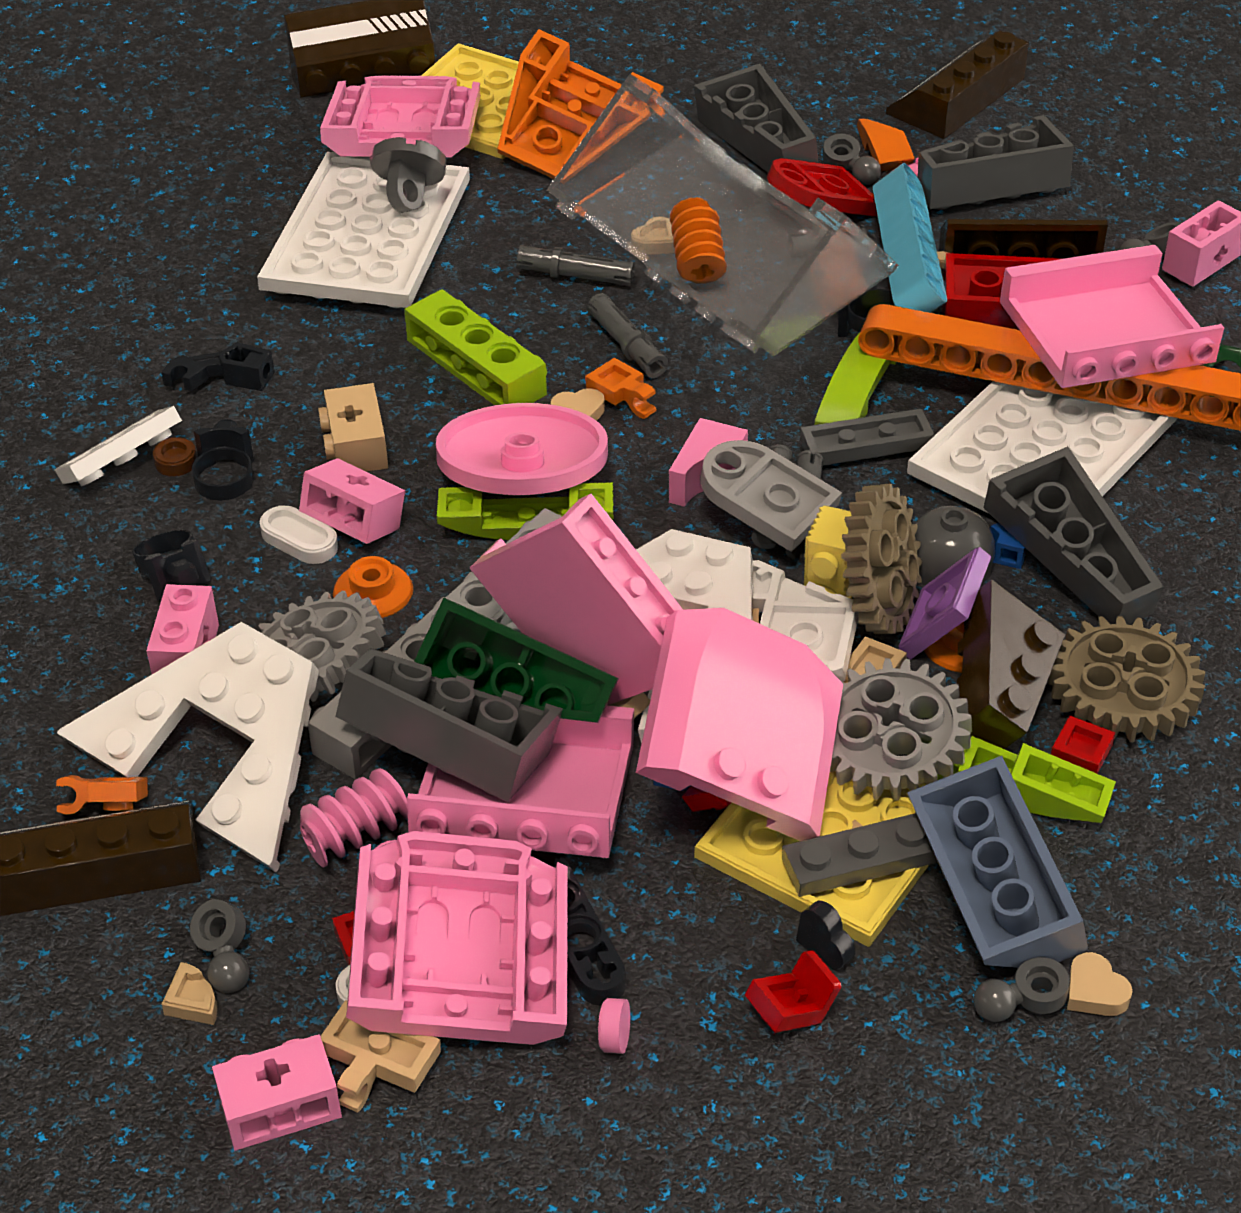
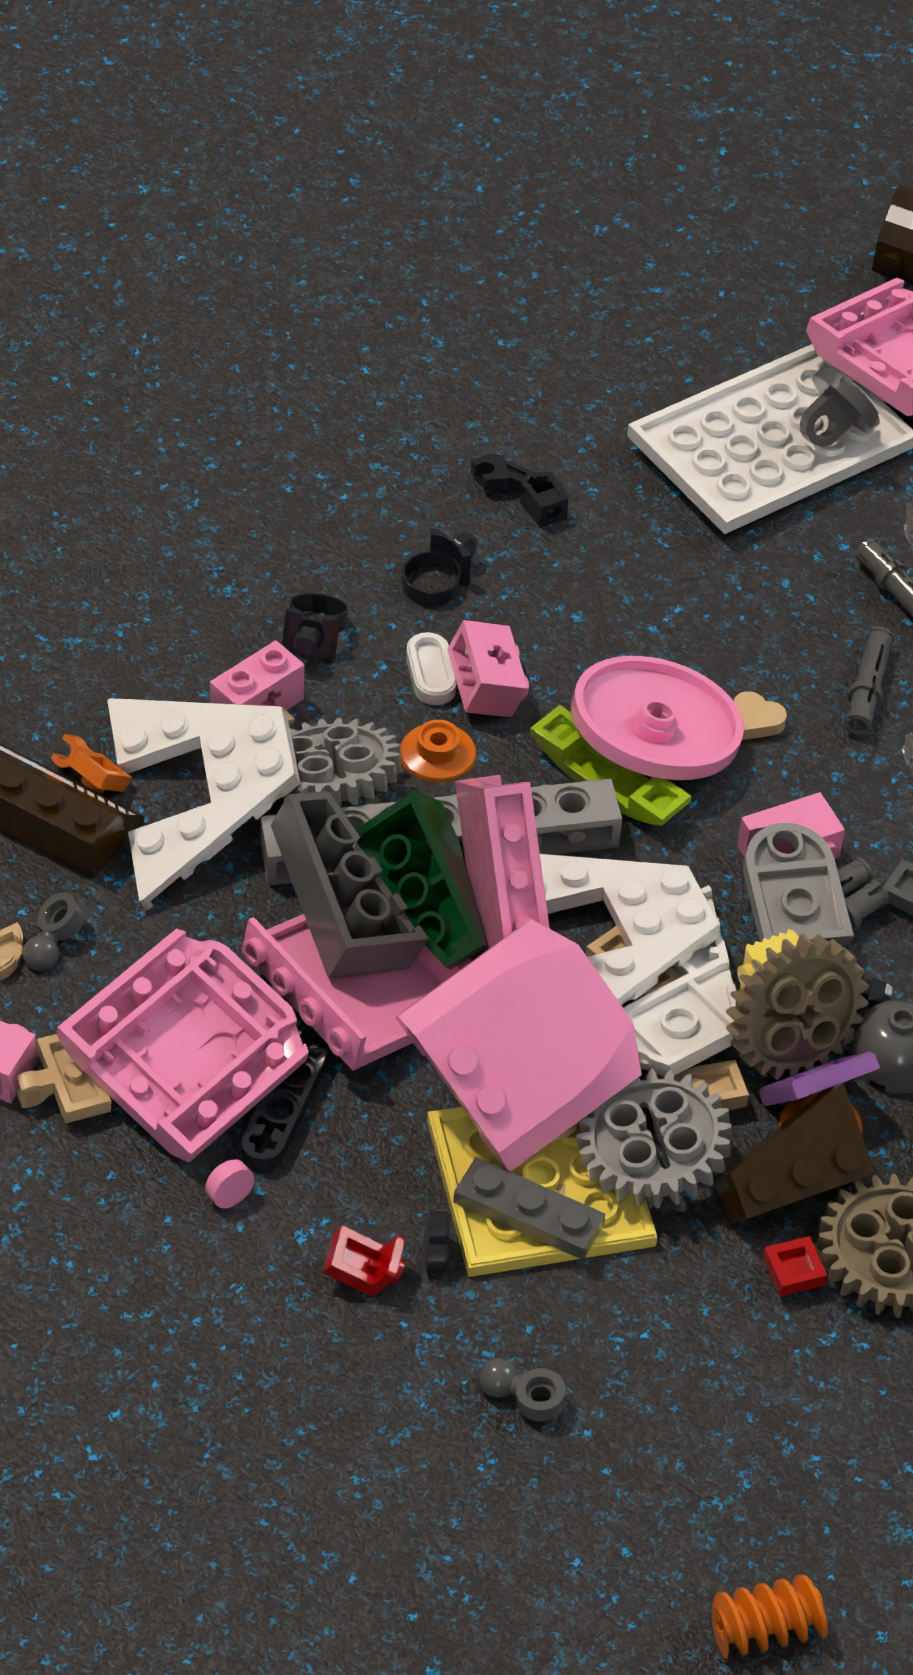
camera: 40 degrees right, 5 degrees up
(119, 447) = (377, 503): white plate -> none
(174, 456) = (411, 538): reddish brown tile -> none
(351, 814) = (219, 907): bright pink piece -> none
(354, 427) = (560, 610): tan brick -> none
(475, 350) = (728, 609): lime brick -> none
(621, 383) = (811, 718): orange plate -> none
(999, 867) = (601, 1291): sand blue slope -> none
(1047, 782) = (718, 1256): lime slope -> none
(1097, 988) = (581, 1429): tan tile -> none

